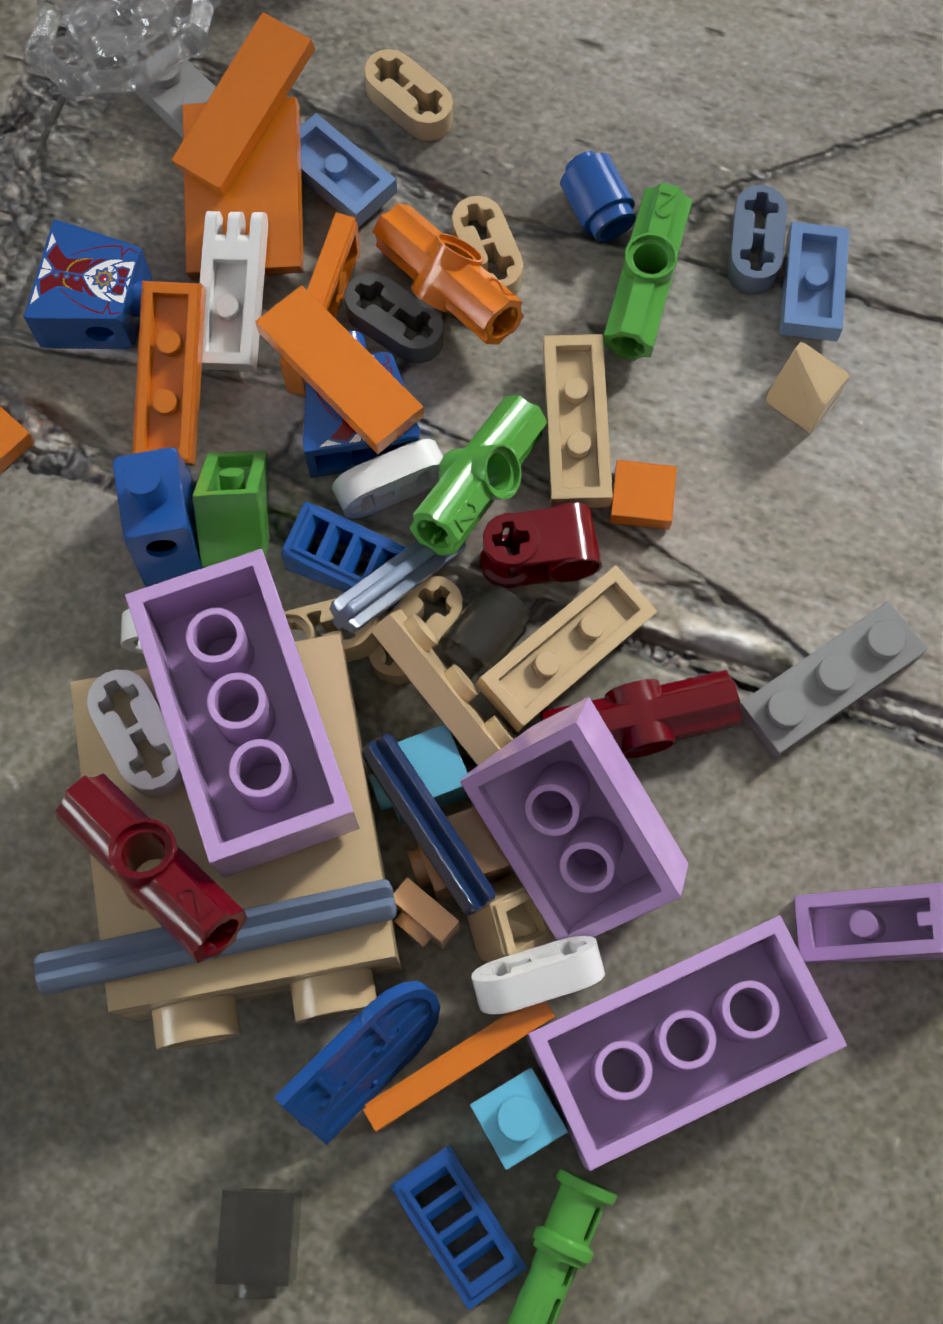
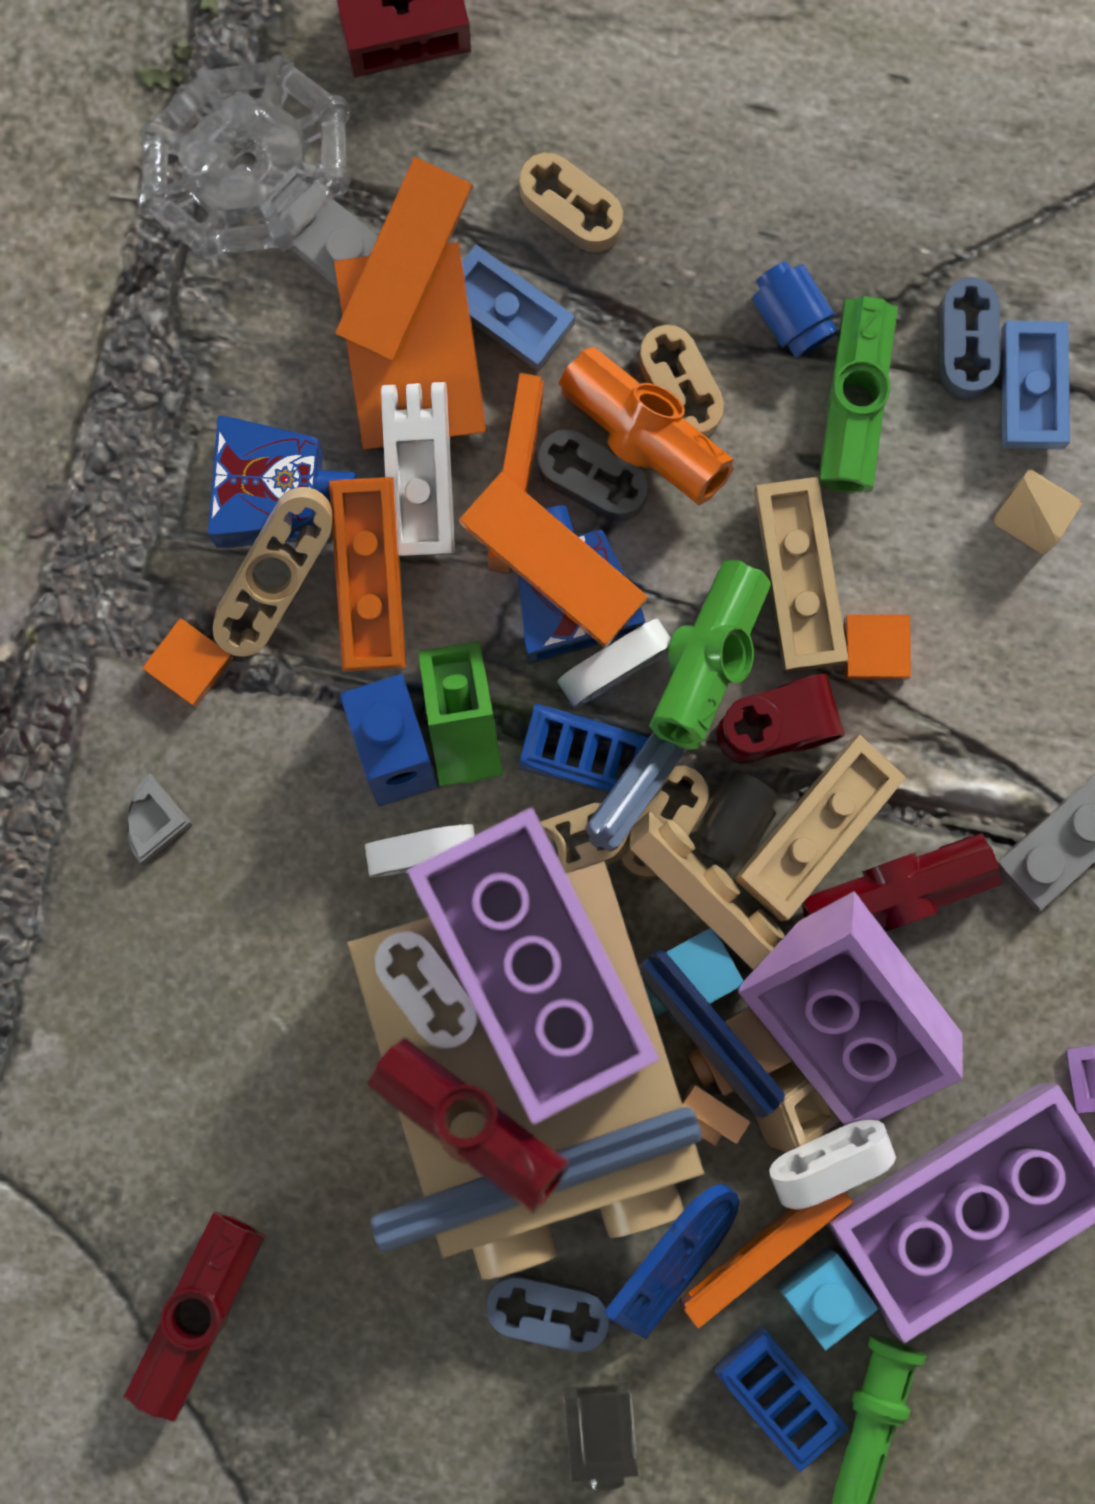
camera: 10 degrees left, 10 degrees up
(39, 385) = (278, 525): none -> tan beam
(220, 1118) = (543, 1328): none -> sand blue beam

